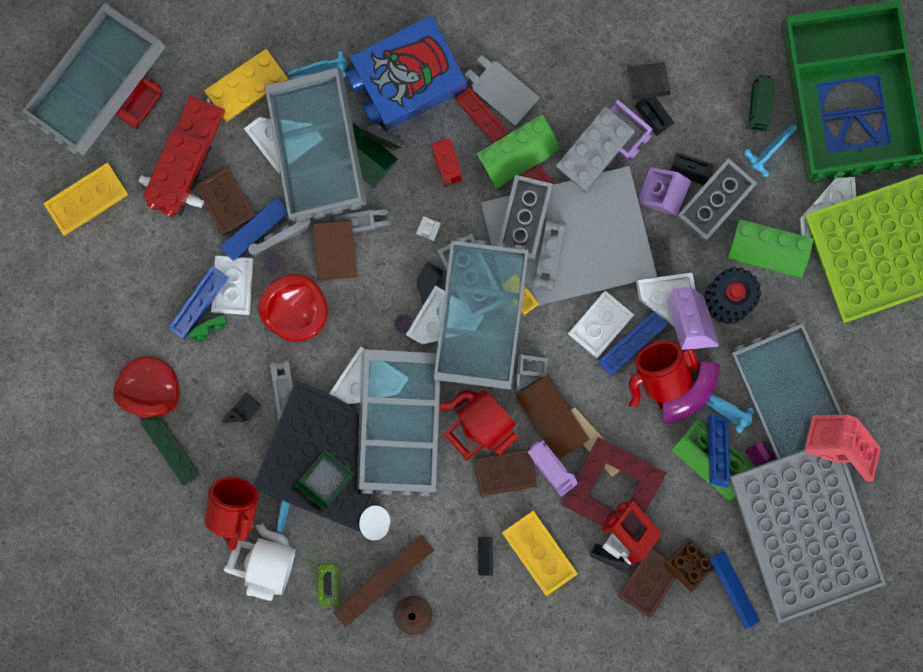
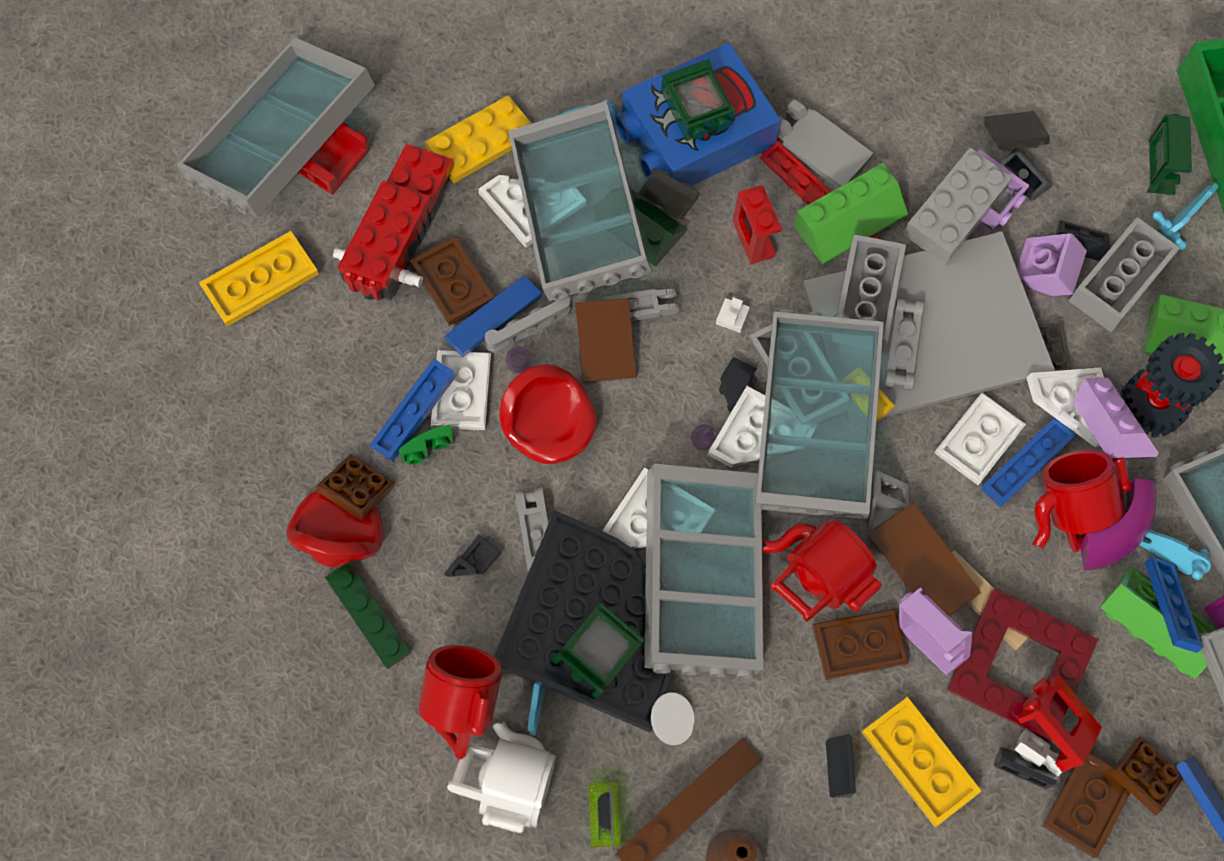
camera: 10 degrees left, 15 degrees down
(159, 358) = (355, 486): none -> reddish brown tile
(404, 69) = (697, 100): none -> dark green window

